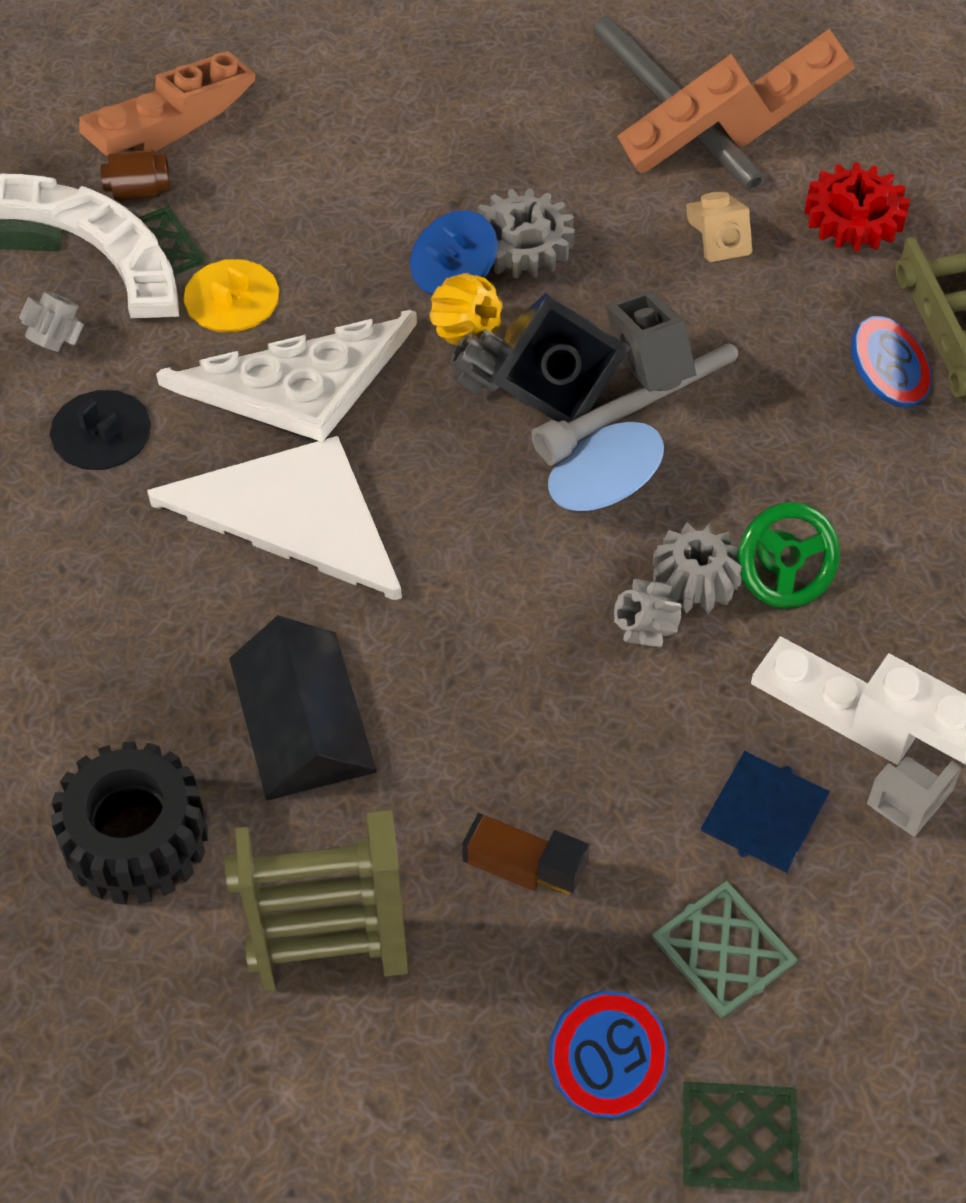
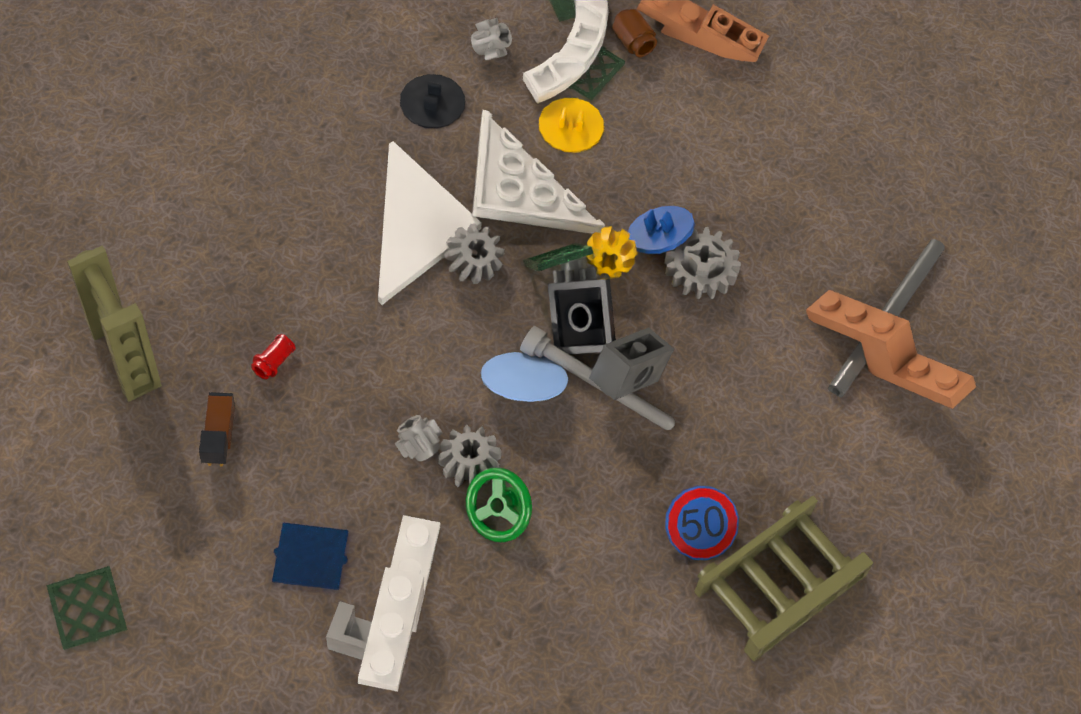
camera: 60 degrees right, 5 degrees up
(135, 862) = (158, 247): black tyre -> none
(300, 709) = (277, 282): black slope -> none
(389, 454) = (461, 252): none -> light grey gear
(437, 761) = (272, 357): none -> red pin
(467, 325) = (557, 256): none -> clear green window
(608, 1054) = (104, 516): piece -> none
(693, 914) = (223, 537): sand green window -> none
(723, 226) = (776, 379): tan bracket -> none
(856, 206) = (837, 473): red gear -> none

